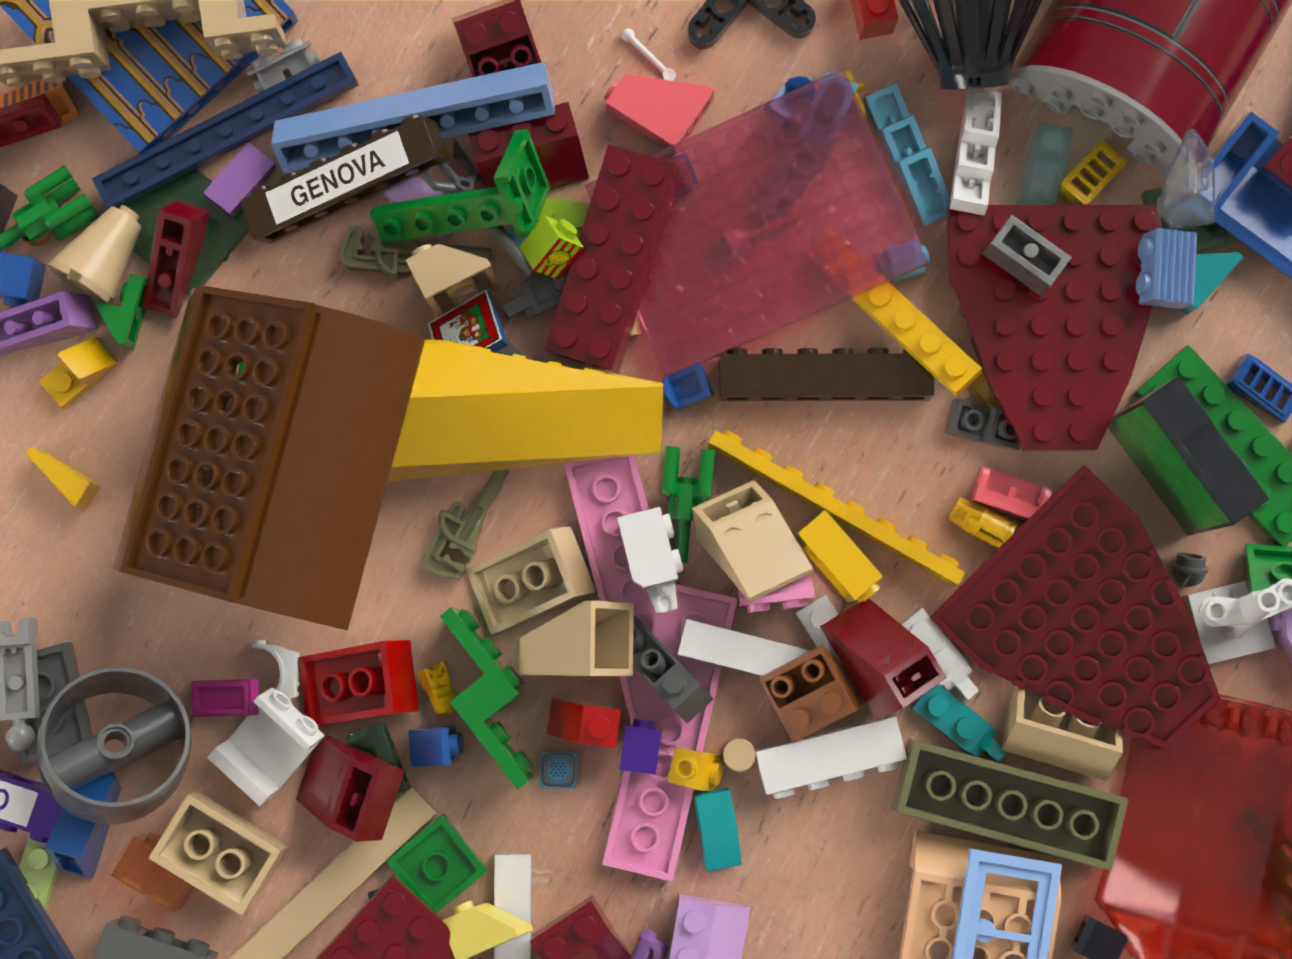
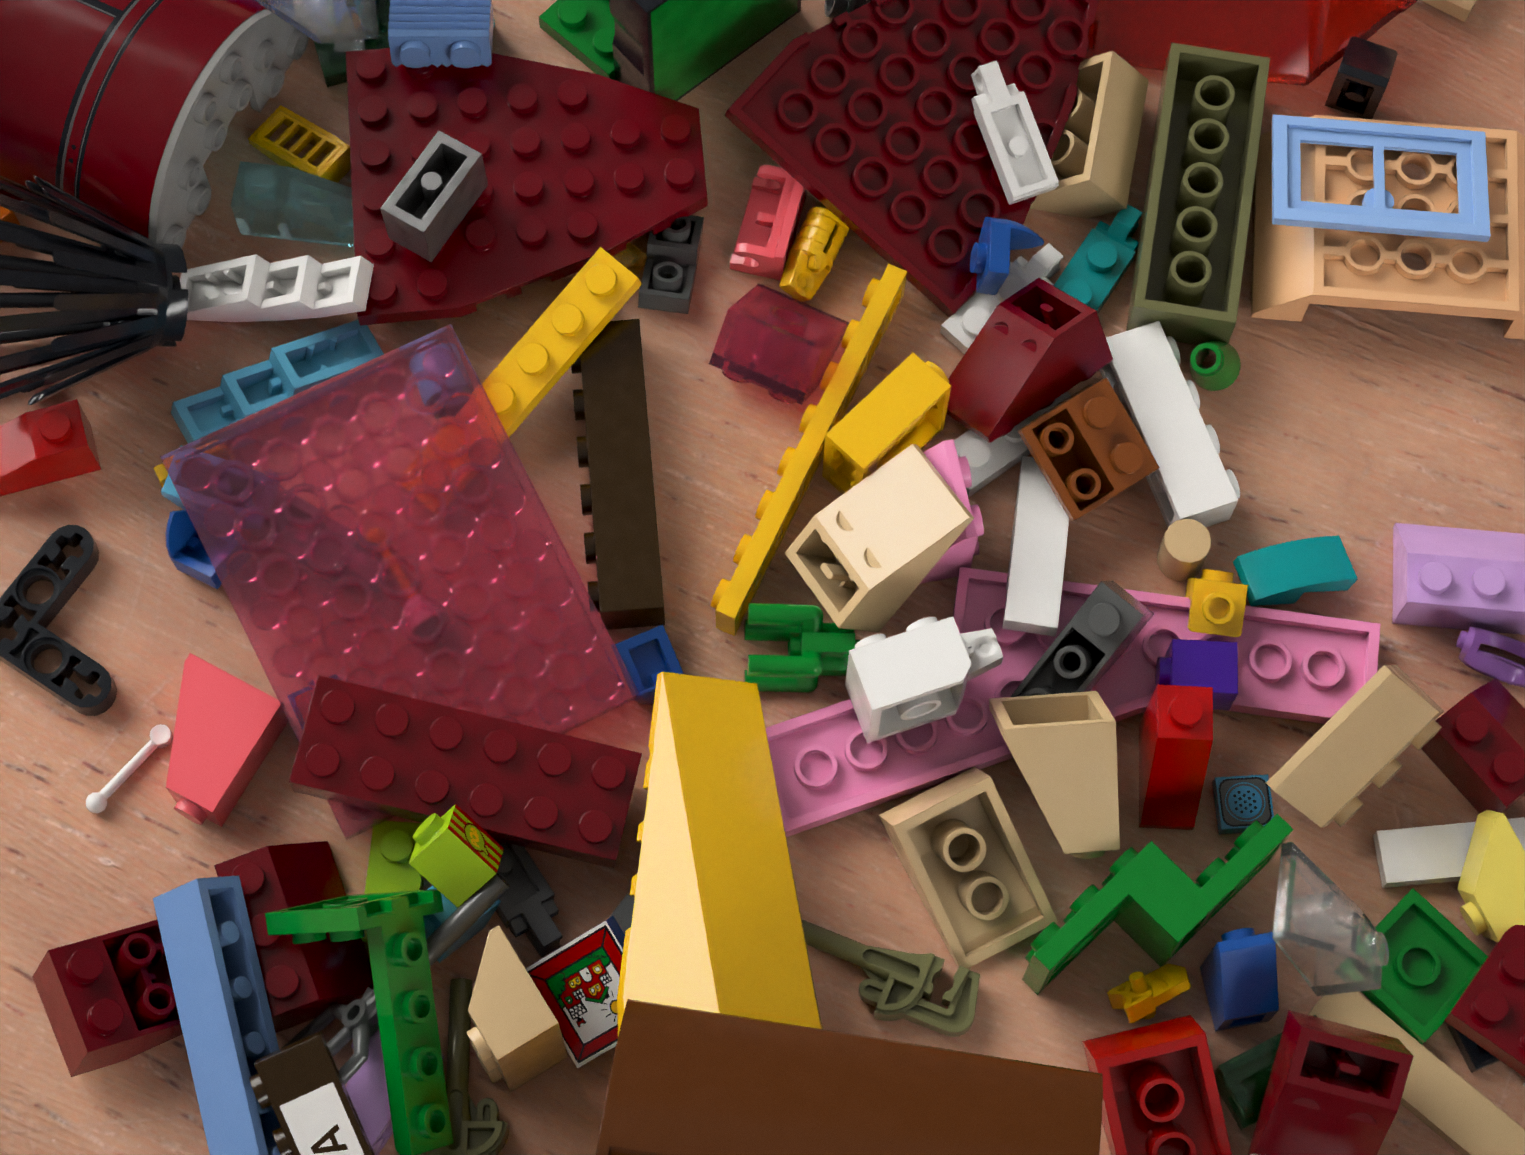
camera: 100 degrees left, 15 degrees down
(459, 803) = (1325, 930): none -> clear slope
(577, 847) = (1357, 747): none -> tan slope
(878, 801) = (1224, 370): none -> green cone
(915, 492) = (777, 344): none -> clear pink slope
(964, 644) = (992, 253): none -> blue plate
(1056, 669) = (1011, 136): none -> white hinge

